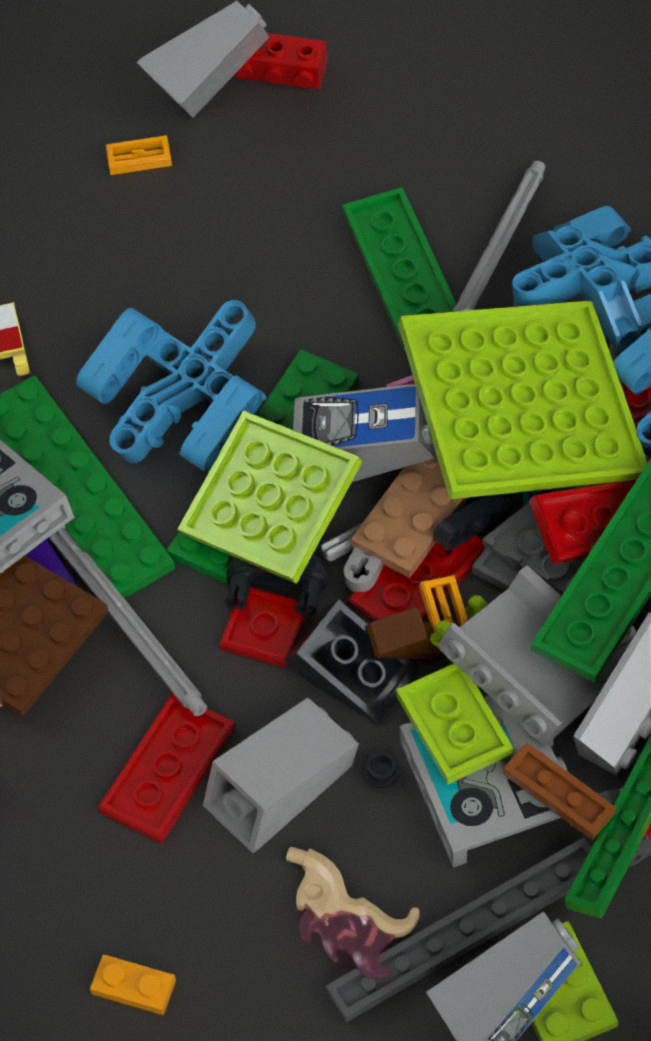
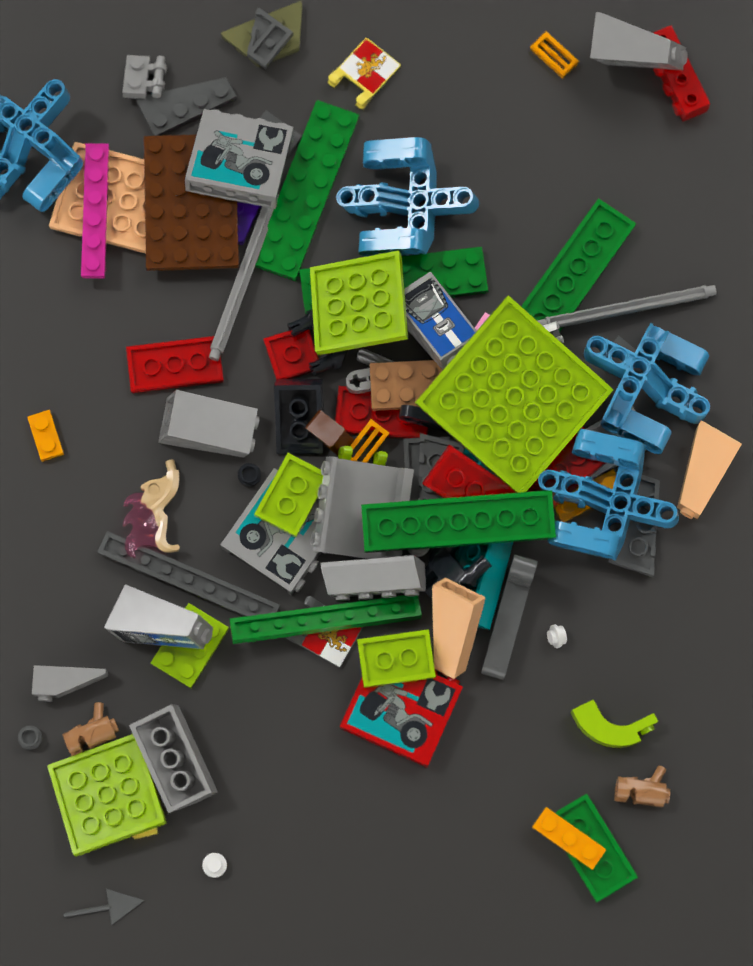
camera: 50 degrees right, 20 degrees up
(559, 791) = (289, 575): dark orange plate -> none

